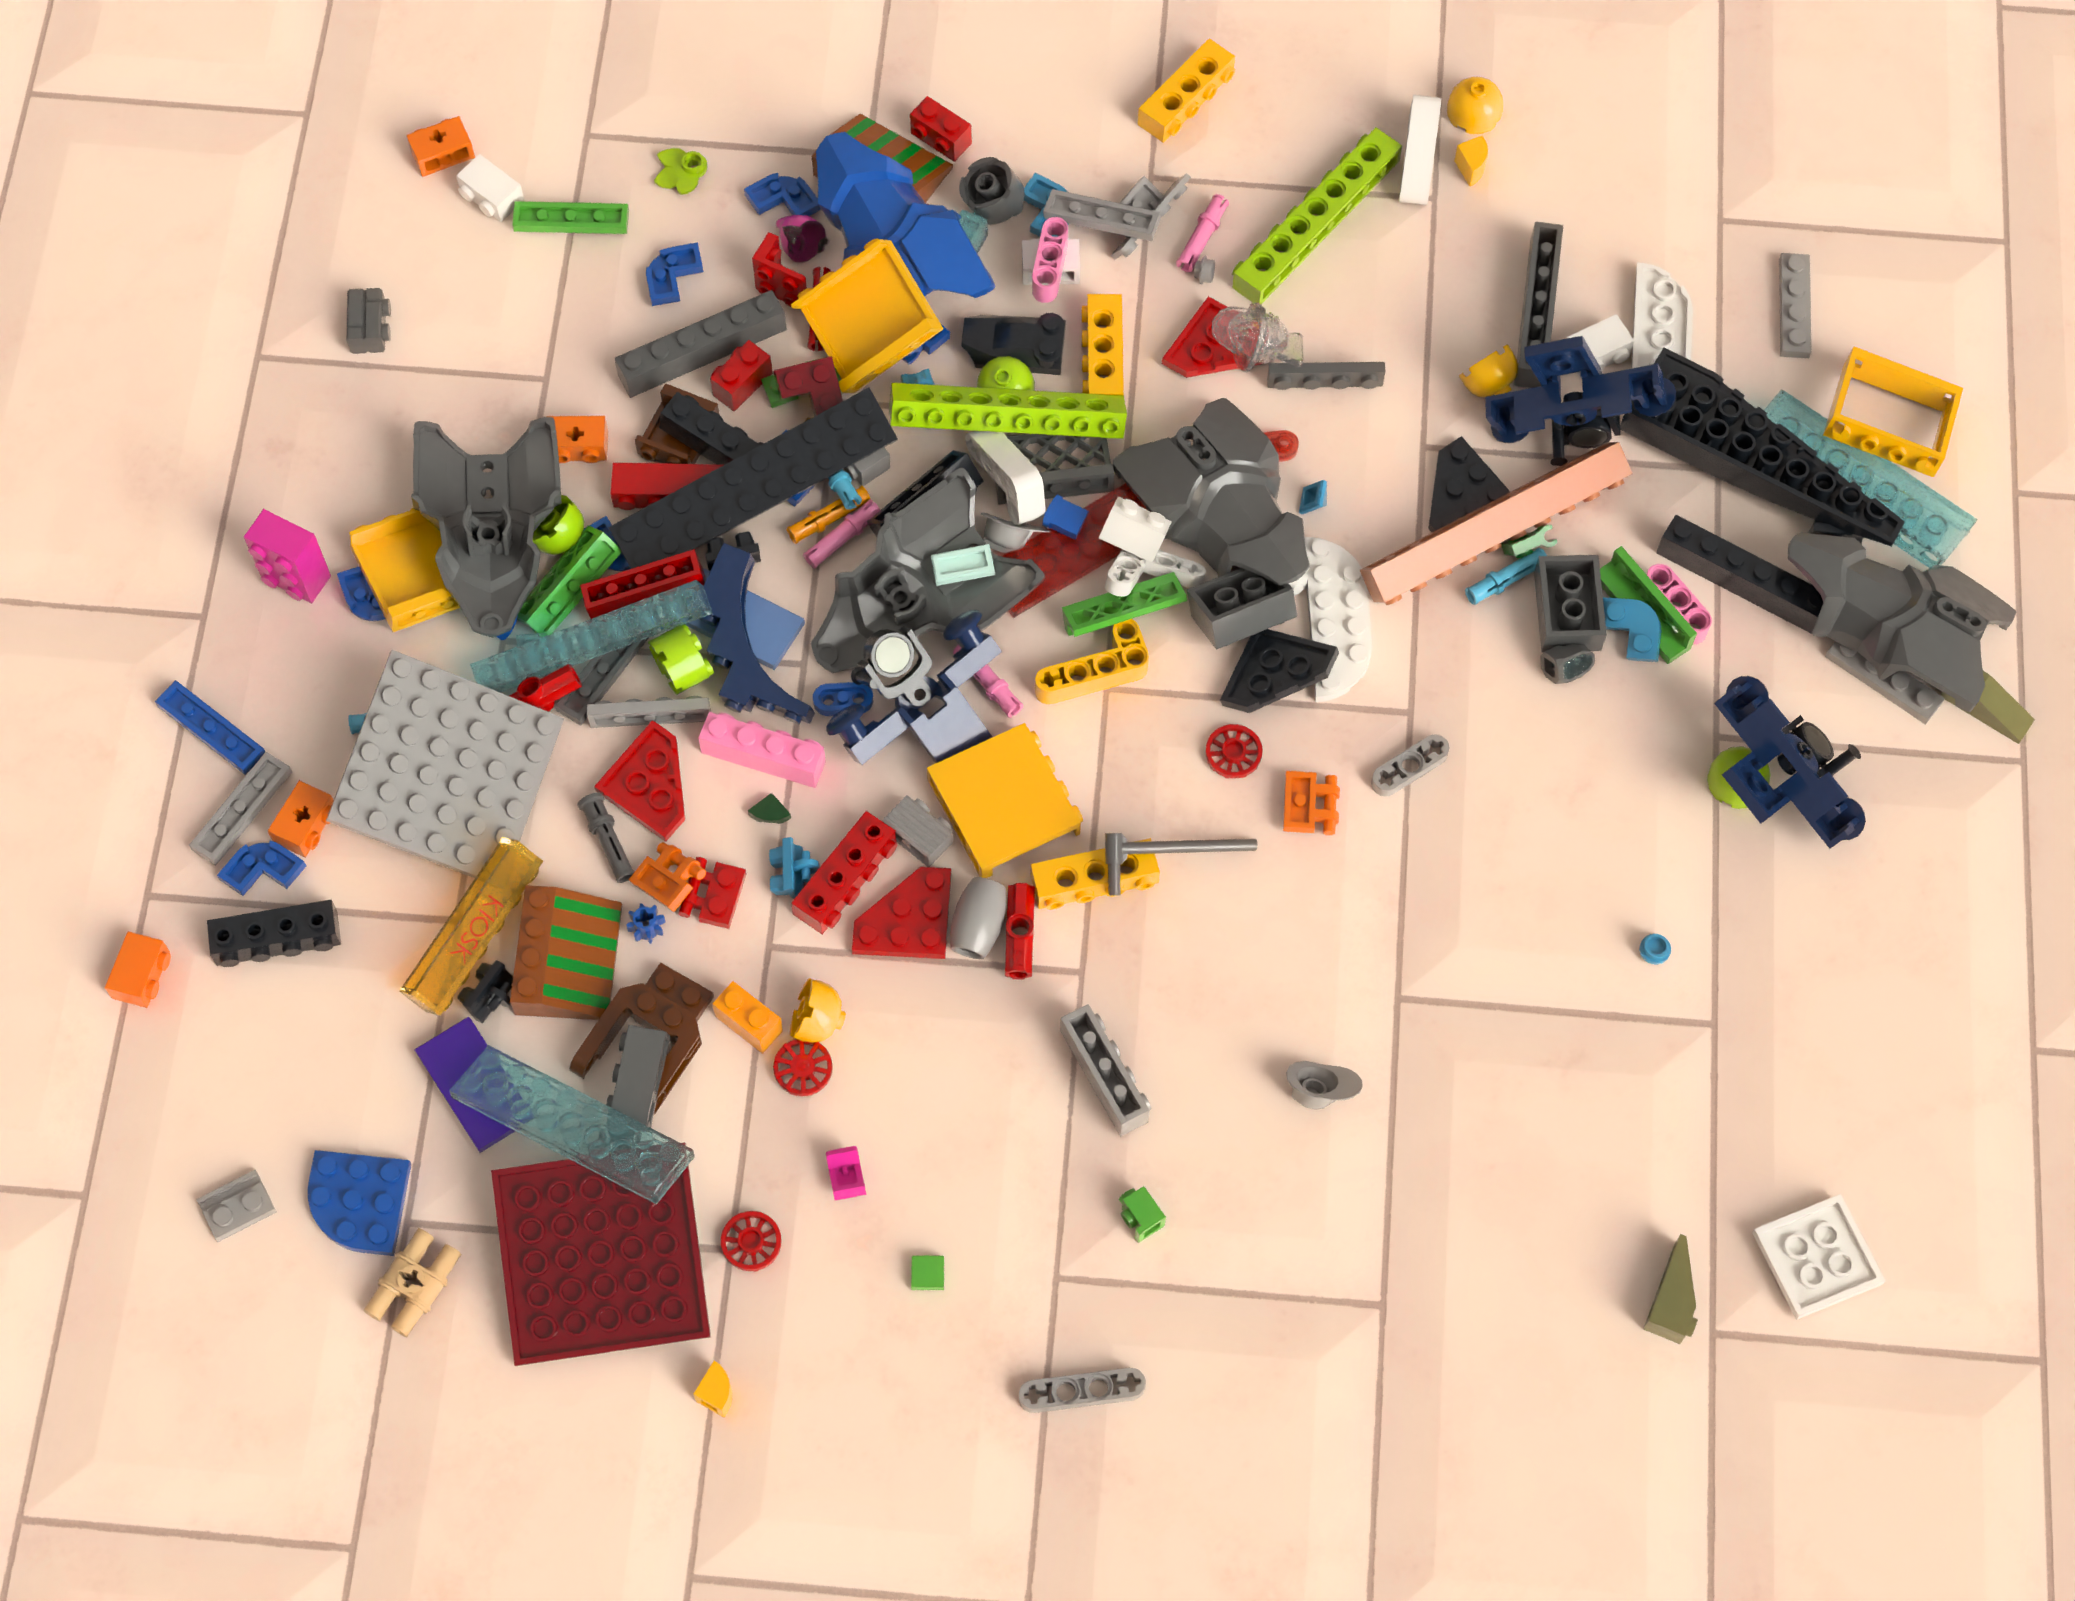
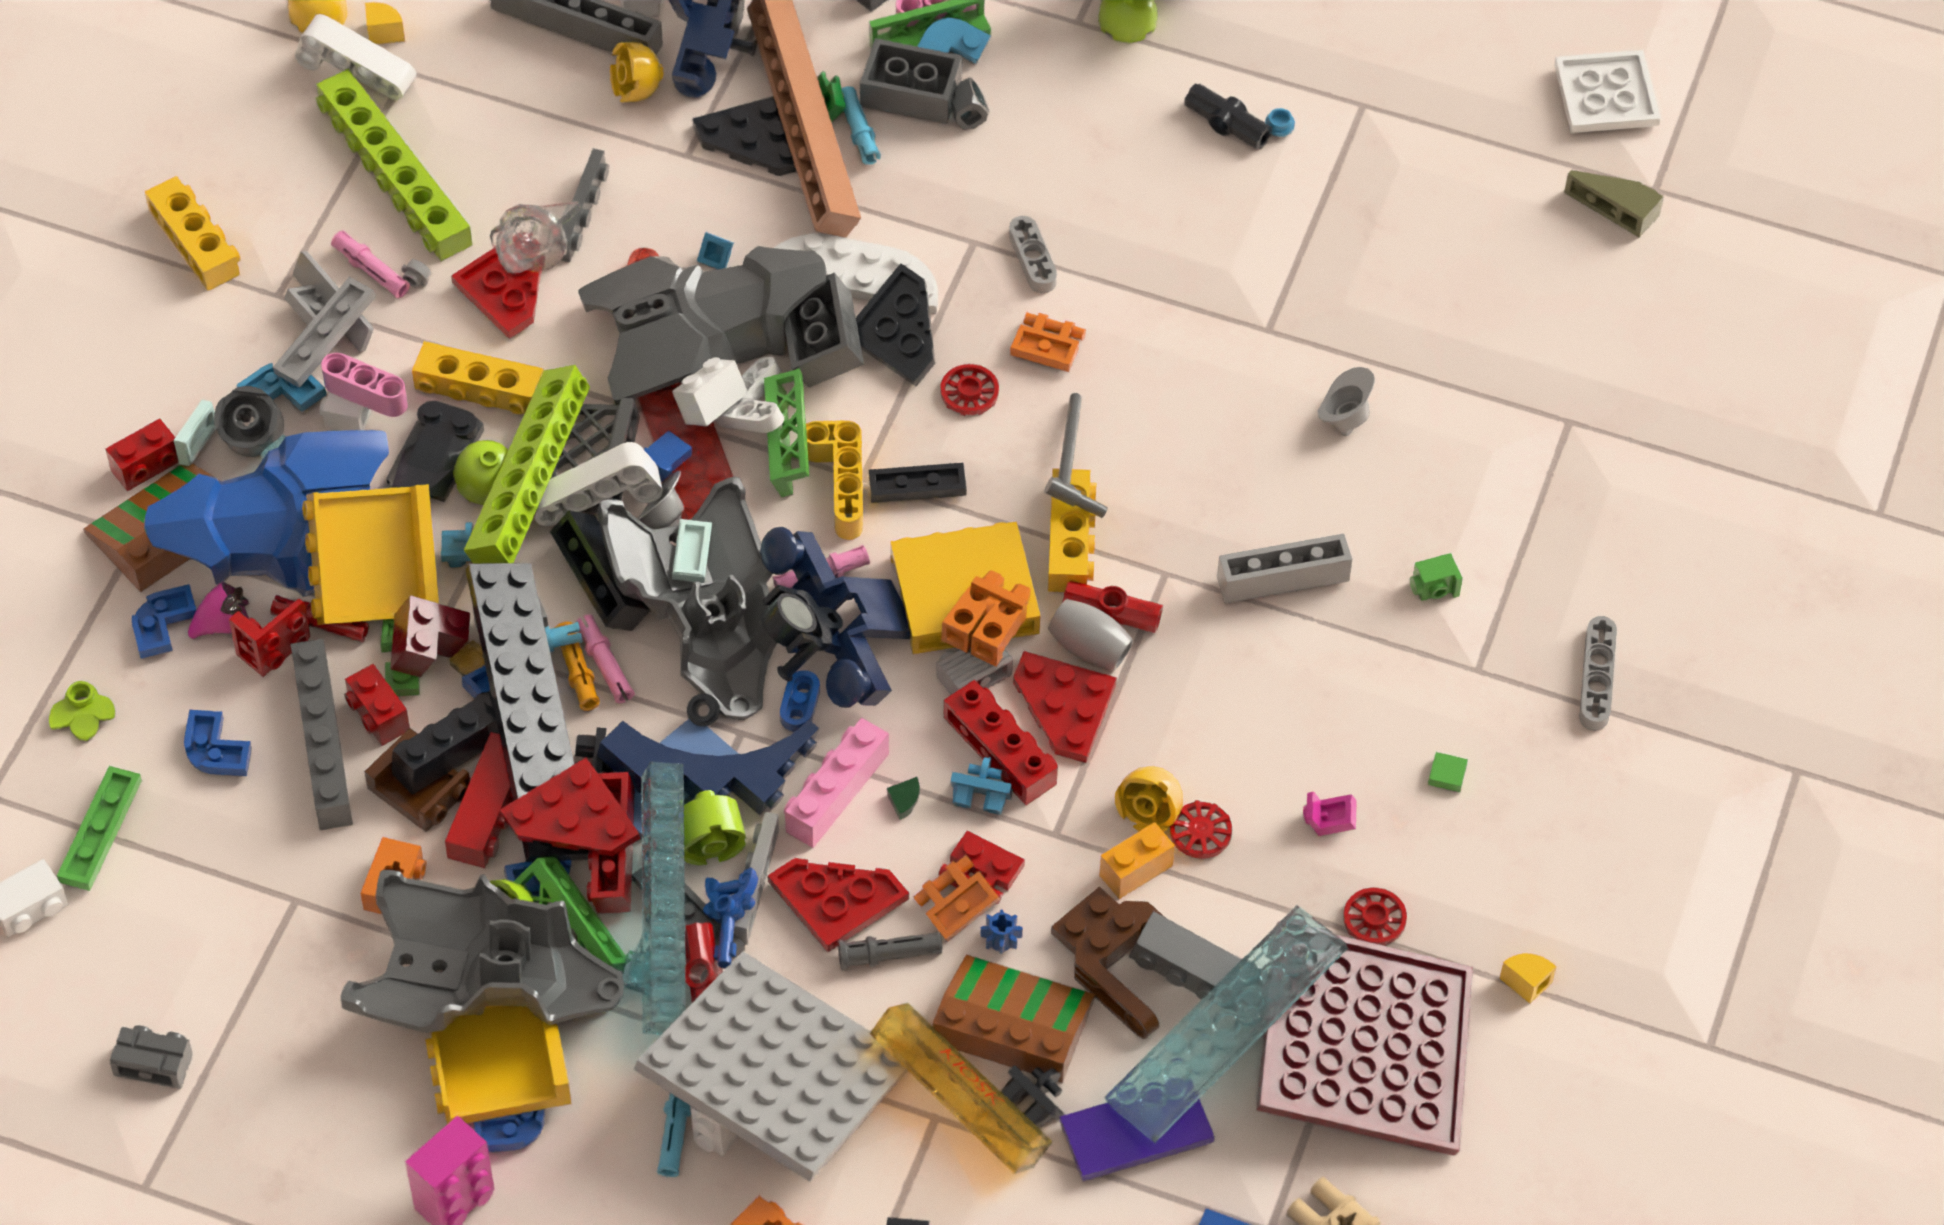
camera: 75 degrees left, 10 degrees down
(599, 695) = (729, 909): none -> blue piece
(649, 543) = (572, 813): none -> red plate
(805, 622) = (693, 710): none -> black plate
(955, 820) = (986, 617): none -> orange hips
(962, 155) = (195, 433): none -> light aqua tile
(1109, 732) = (917, 482): none -> black plate
(1642, 897) = (1228, 116): none -> black piece

